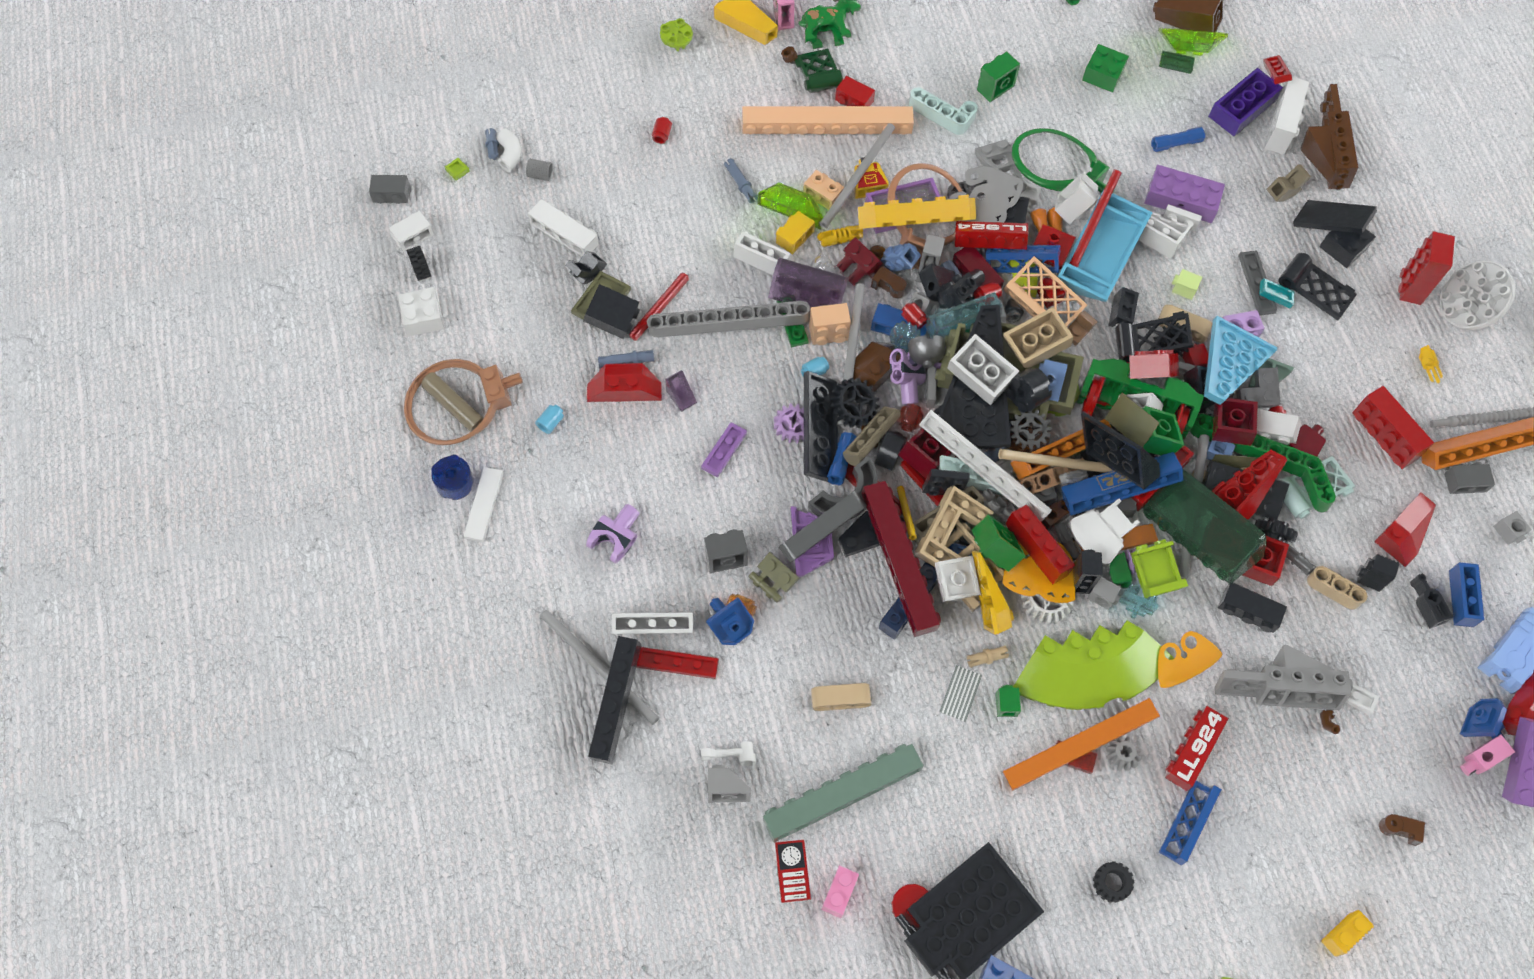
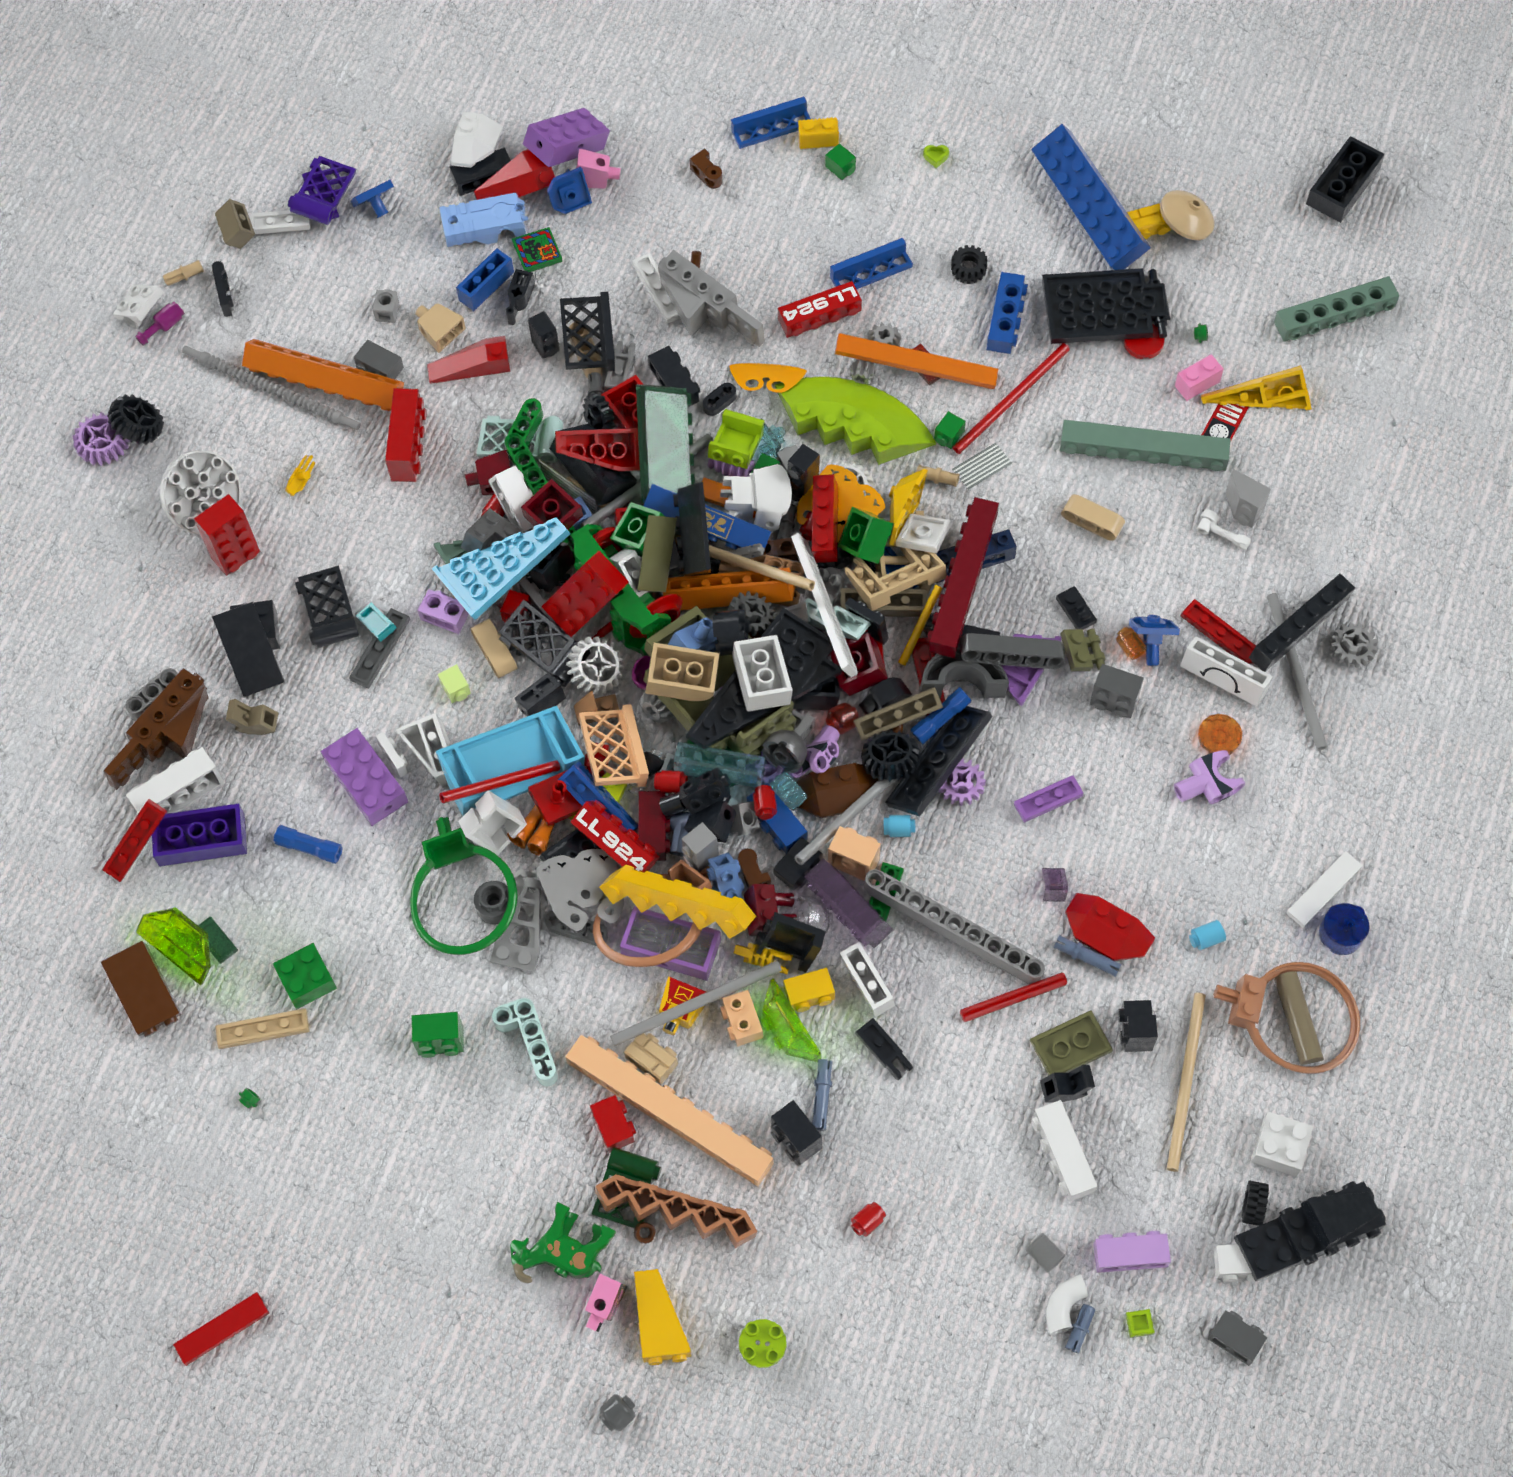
camera: 140 degrees left, 0 degrees up
(370, 268) = (1312, 1230): none -> black wedge
(484, 198) = (1131, 1252): none -> lavender brick
(510, 322) = (1186, 1082): none -> tan piece
(560, 327) = (1138, 1026): none -> black brick
(571, 713) = (1361, 638): none -> light grey gear
(612, 311) = (1073, 1010): black brick -> none
(628, 576) = (1220, 733): none -> clear orange tile
(720, 226) = (883, 1047): none -> black hinge
(739, 142) = (796, 1133): none -> black brick
(765, 931) = (1279, 389): none -> yellow wedge
(778, 66) = (676, 1208): none -> nougat brick
(802, 612) = (1076, 608): none -> black plate
(829, 244) = (791, 938): none -> black panel
(859, 140) = (651, 1057): none -> tan brick
(868, 304) = (790, 871): none -> black brick
(868, 946) = (1201, 333): none -> green plate
(981, 776) = (1011, 398): none -> red piece
(1036, 817) = (1009, 285): none -> blue brick
(1038, 165) = (484, 895): none -> dark grey piece
(1102, 34) = (262, 1028): none -> tan tile
(1109, 335) = (597, 649): none -> white gear
(1199, 616) = (717, 397): none -> black beam
(1299, 593) = (623, 366): none -> light grey hinge
(1303, 916) = (840, 161): none -> green brick
(1339, 608) = (604, 327): none -> black fence
(1364, 173) = (143, 698): none -> light grey beam
(1401, 926) = (768, 119): none -> blue fence
(1457, 657) = (537, 250): none -> tile
(1459, 537) = (439, 325): none -> tan torso

